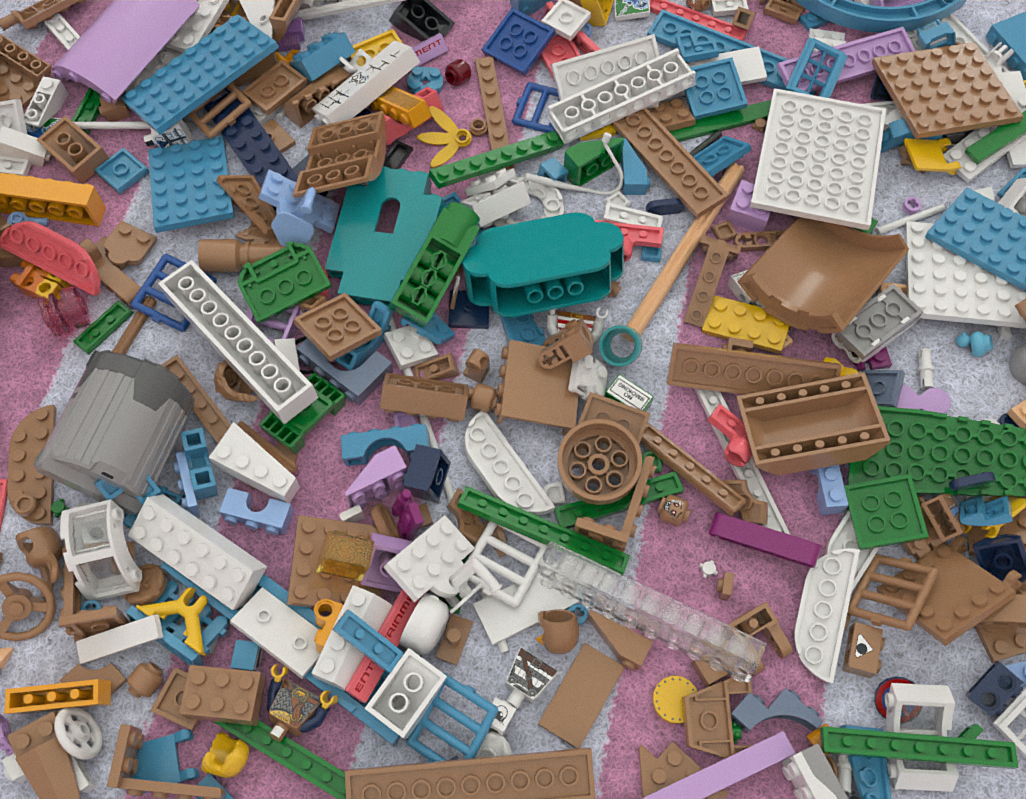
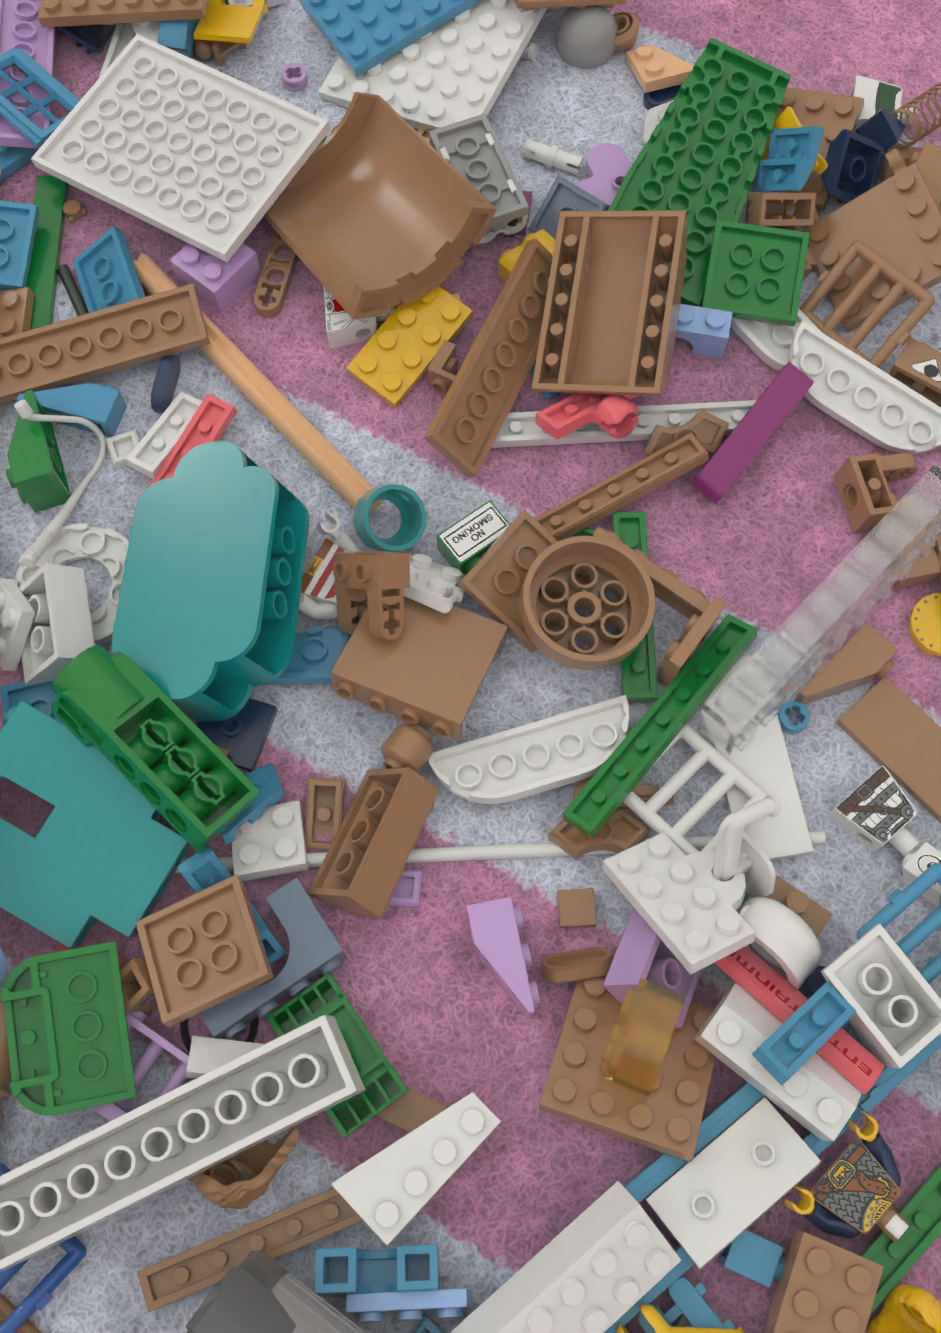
camera: 70 degrees left, 5 degrees up
(273, 518) = (480, 1216): light blue arch -> none
(275, 453) = (381, 1138): medium nougat axle -> none
(325, 622) = (765, 1105): light orange plate -> none
(352, 515) = (549, 1017): white tile -> none
(359, 447) = (449, 881): dark azure arch -> none
(409, 515) = (586, 922): magenta plate -> none
(426, 473) = (520, 871): dark blue brick -> none
(477, 366) = (348, 743): medium nougat leg -> none
(553, 169) = (27, 518): dark azure panel -> none
(555, 493) = (594, 690): white tile -> none
(560, 630) = (820, 746): medium nougat piece -> none
(651, 254) = (239, 431): dark azure tile -> none
(673, 510) = (671, 535): medium nougat head -> none
(708, 569) = (766, 521): white piece -> none
(717, 254) = (320, 359): medium nougat bracket -> none
(724, 231) = (240, 320): medium nougat tile -> none
(724, 586) = (800, 506): medium nougat plate -> none
(912, 218) = (313, 78): white bar -> none
(972, 481) = (749, 155): dark blue tile -> none
(979, 343) = (537, 81): medium azure animal -> none

